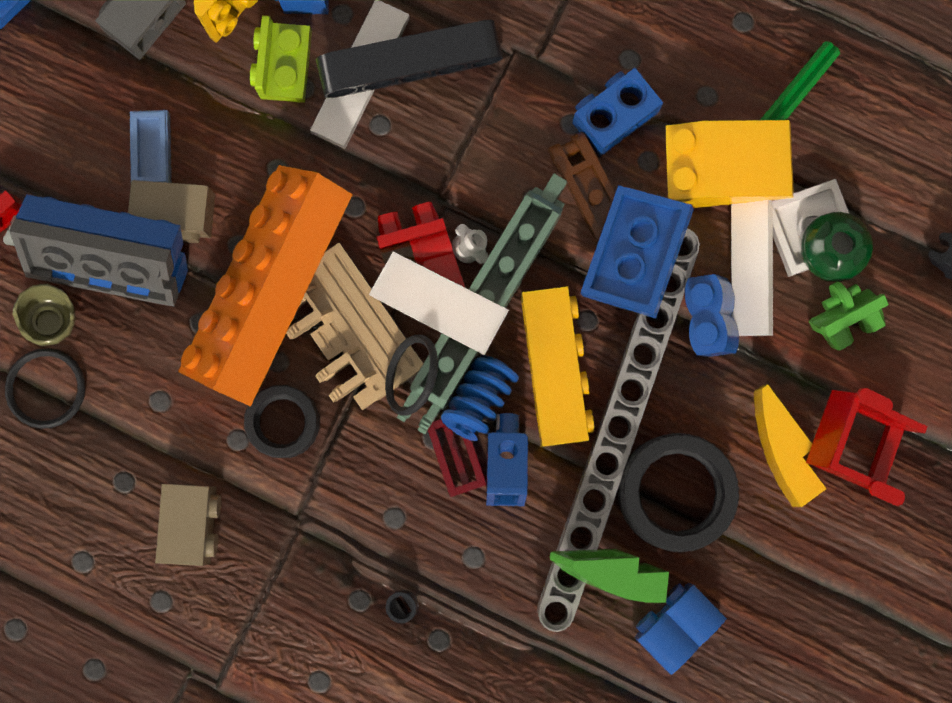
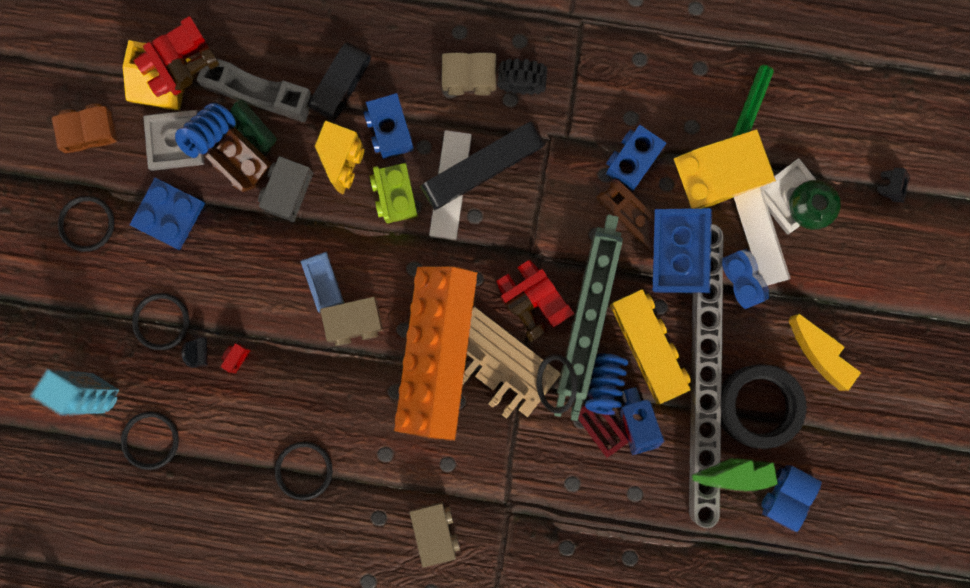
camera: 15 degrees left, 0 degrees up
(44, 314) = (289, 420): olive hair -> none
(99, 249) = (313, 364): dark grey piece -> none
(255, 434) = (483, 462): black tyre -> none
(396, 609) = (596, 547): black hinge -> none
(438, 303) = (559, 328): white sticker -> none
(470, 245) = (565, 280): white plate -> none
(835, 429) = (855, 332): red piece -> none
(845, 309) = (834, 245): bright green hips -> none

